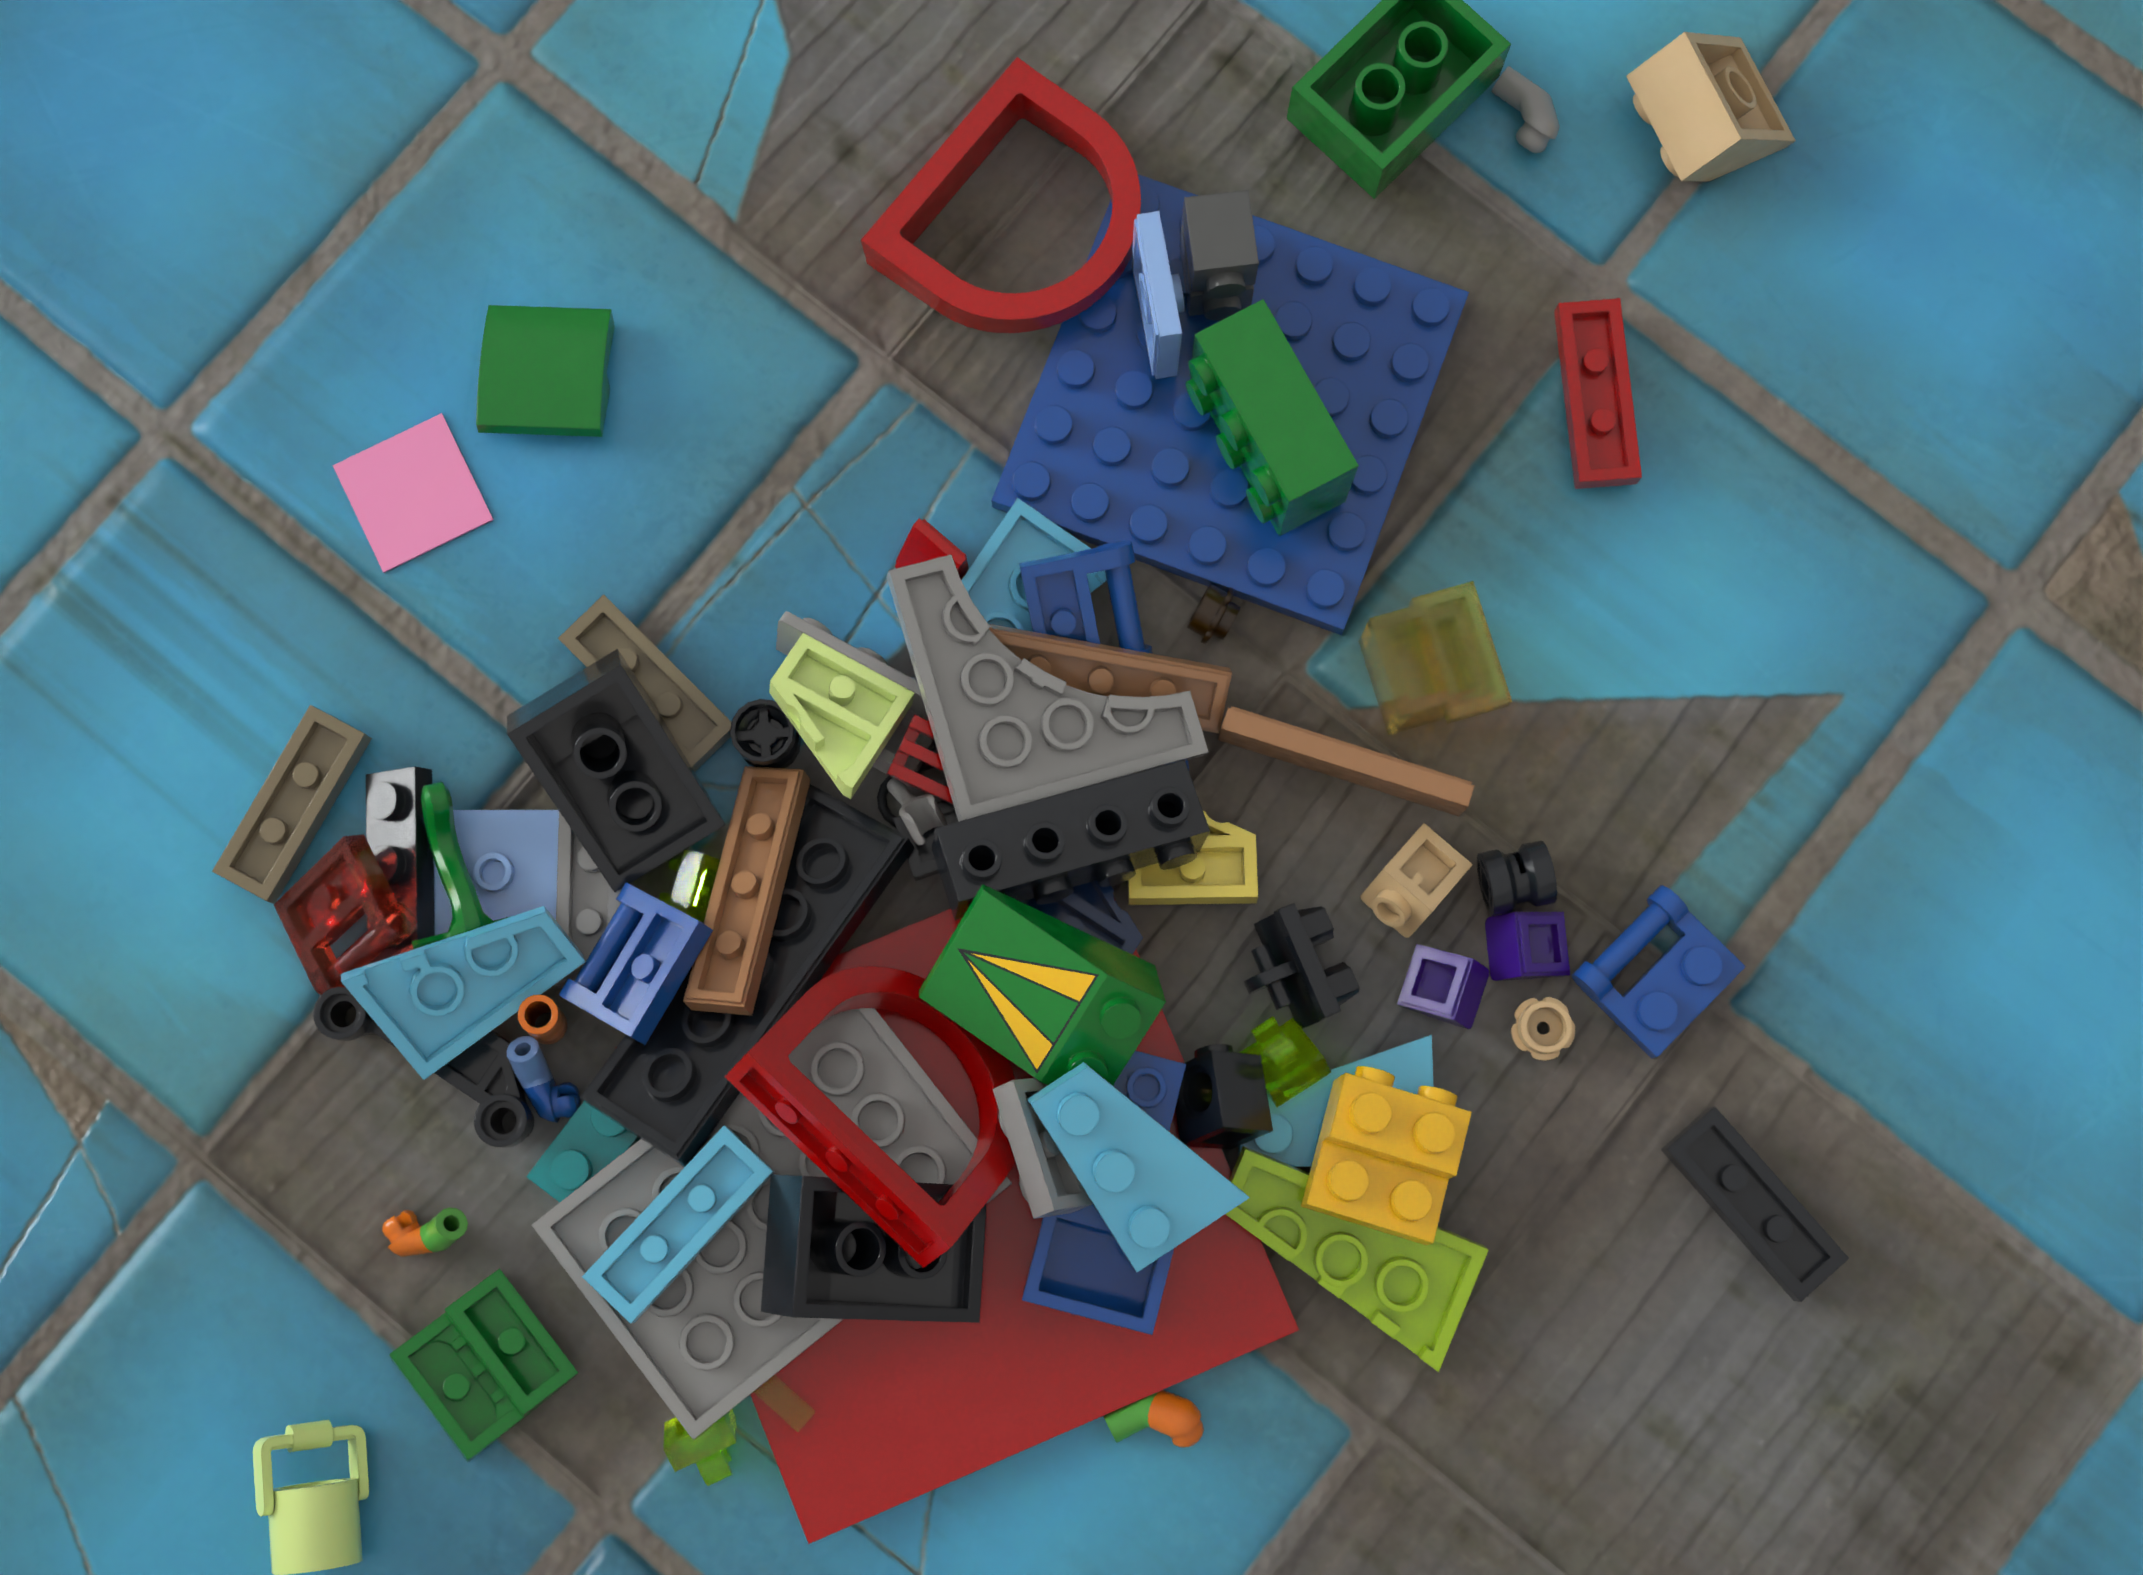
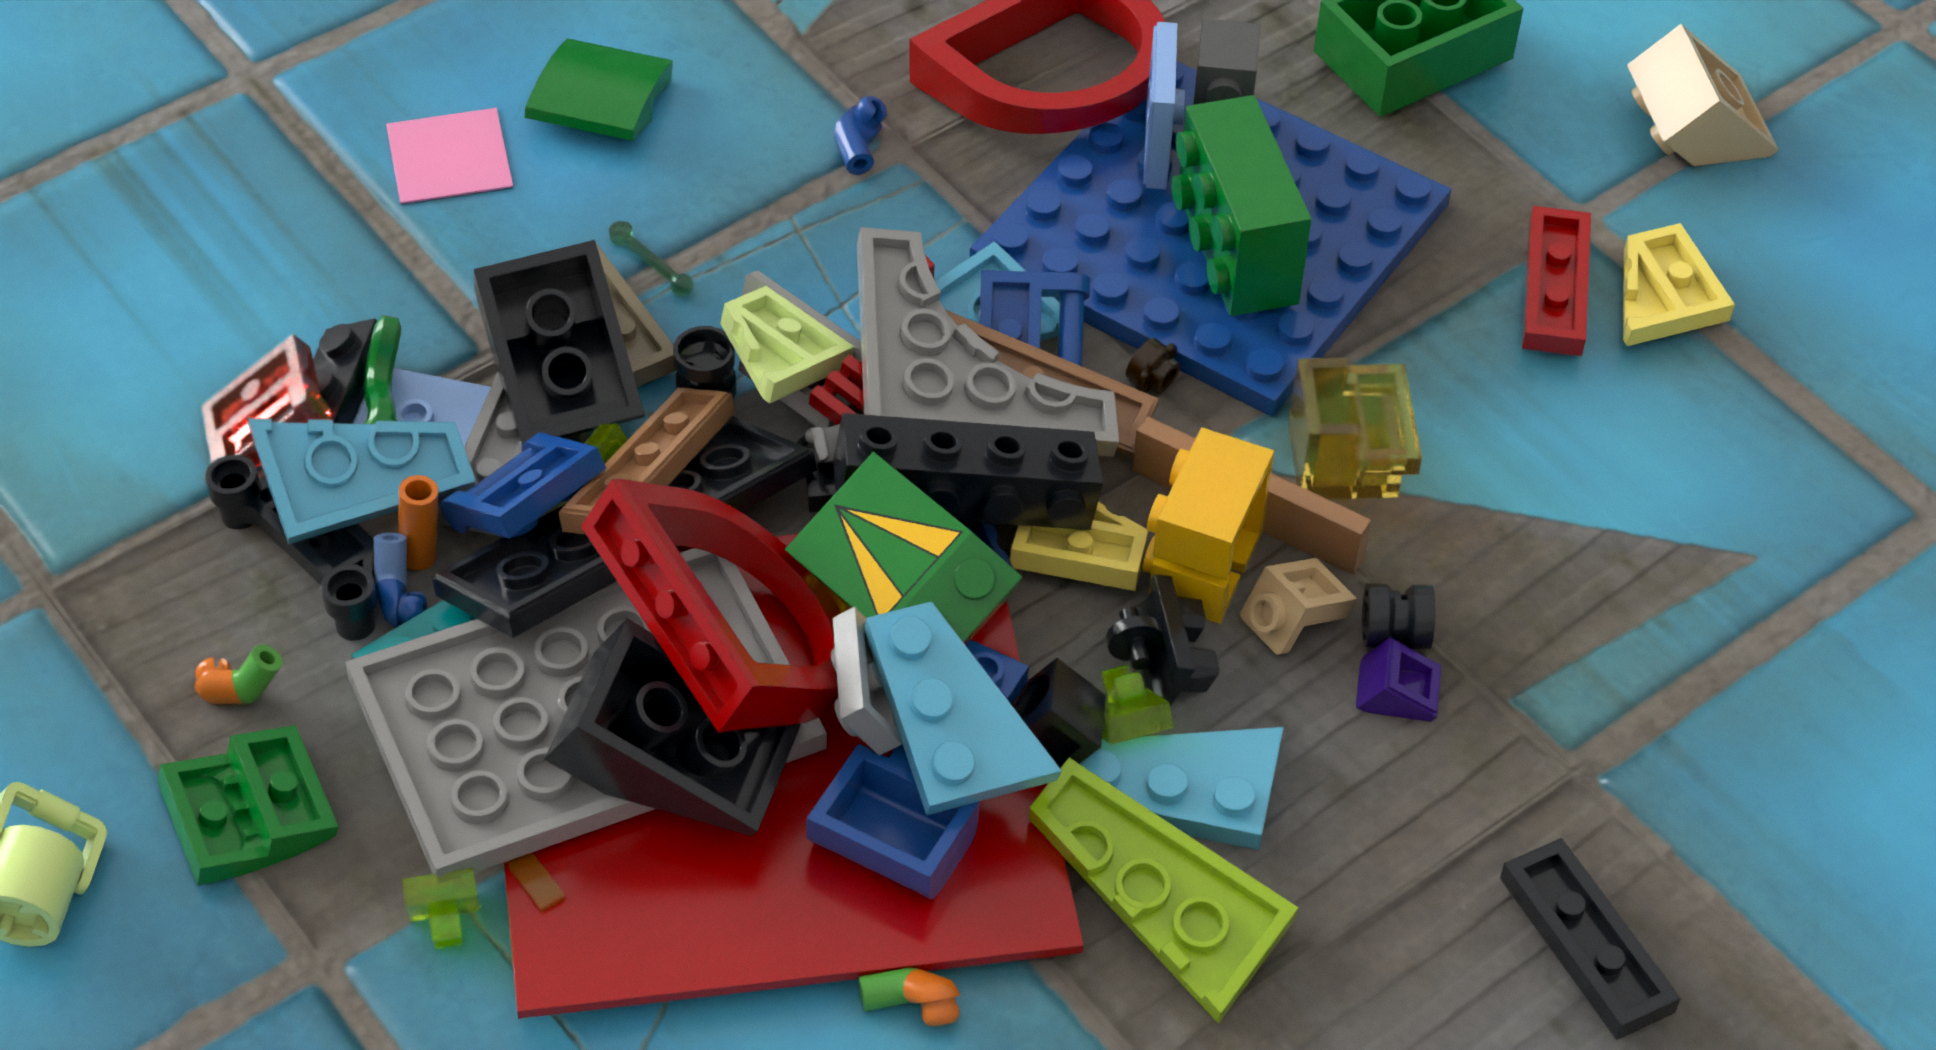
camera: 10 degrees right, 30 degrees down
(292, 804) = (239, 339): dark tan plate -> none
(626, 560) = (622, 234): none -> clear green hinge
(678, 1224) = (488, 677): medium azure plate -> none
(830, 363) = (857, 130): none -> blue arm
(1320, 830) = (1210, 518): none -> yellow piece
(1386, 1155) = (1211, 789): yellow plate -> none
(1444, 986) = (1308, 699): dark purple slope -> none
(1535, 106) = (1538, 77): light grey arm -> none
(1560, 1028) = (1403, 734): tan plate -> none
(1674, 987) = (1538, 746): blue plate -> none
(1710, 373) = (1669, 287): none -> light yellow wing

